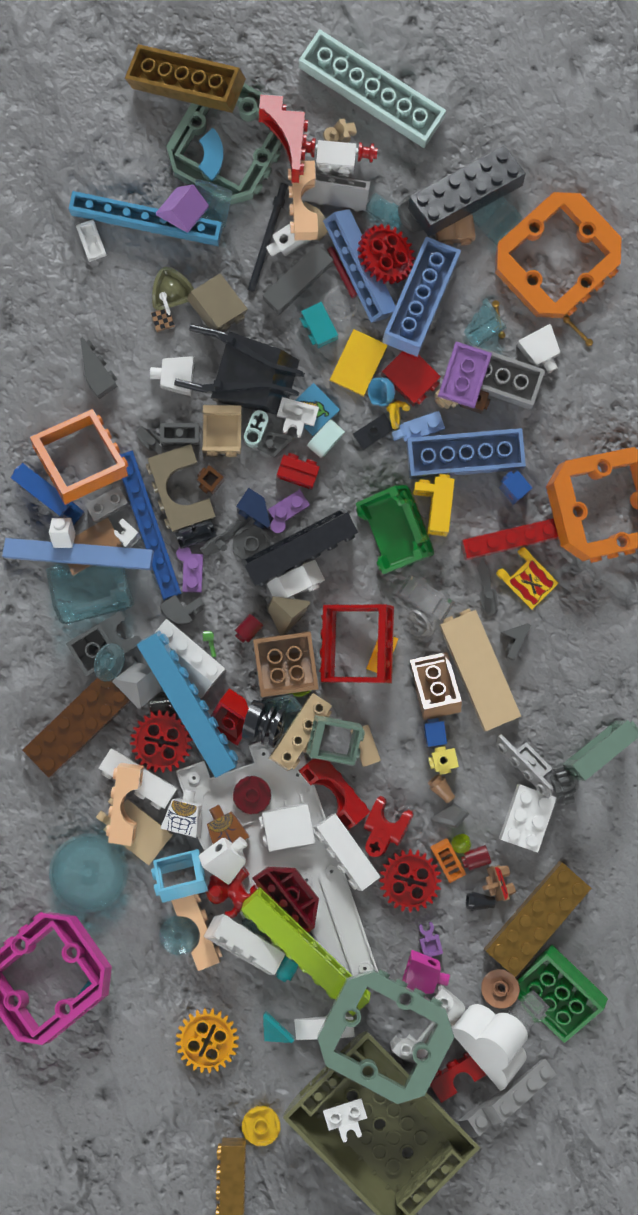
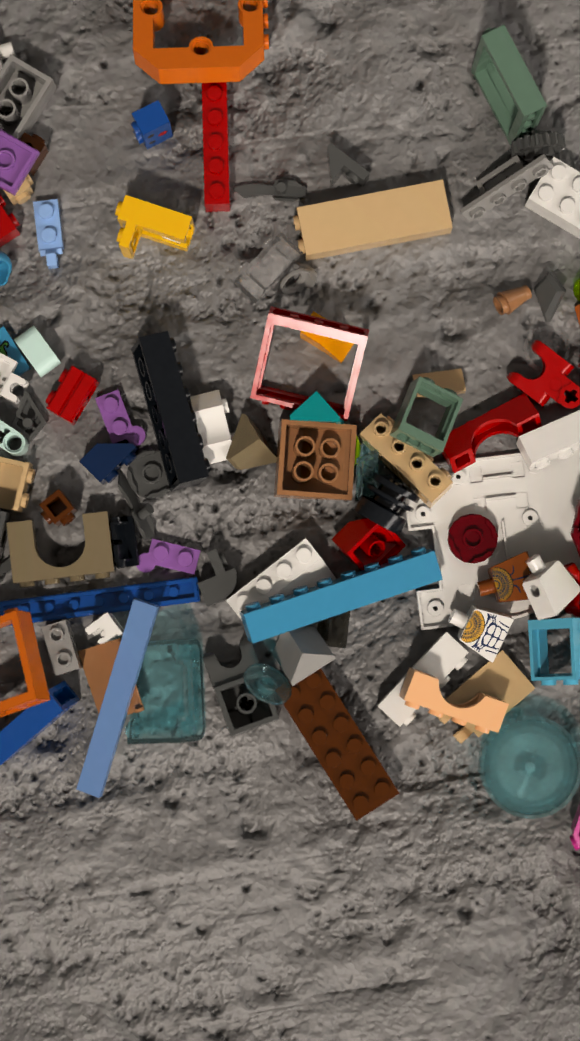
camera: 70 degrees left, 0 degrees up
(62, 533) = (86, 712): white brick -> none
(158, 759) = (401, 649): red gear -> none
(209, 636) = (258, 553): bright green hand -> none
(248, 628) = (260, 499): dark red brick -> none
(287, 827) = (523, 500): white brick -> none
(322, 656) = (316, 410): none -> teal slope
(373, 431) = (41, 290): black plate -> none
(394, 410) = (18, 258): yellow piece -> none
(396, 528) = (171, 286): green windscreen -> none
(435, 732) = (441, 292): blue brick -> none
(436, 686) = (382, 278): medium nougat slope -> none
(450, 757) = (481, 280): light yellow brick -> none
(466, 453) = (95, 178): medium blue brick -> none
(530, 581) = (274, 135): flag -> none

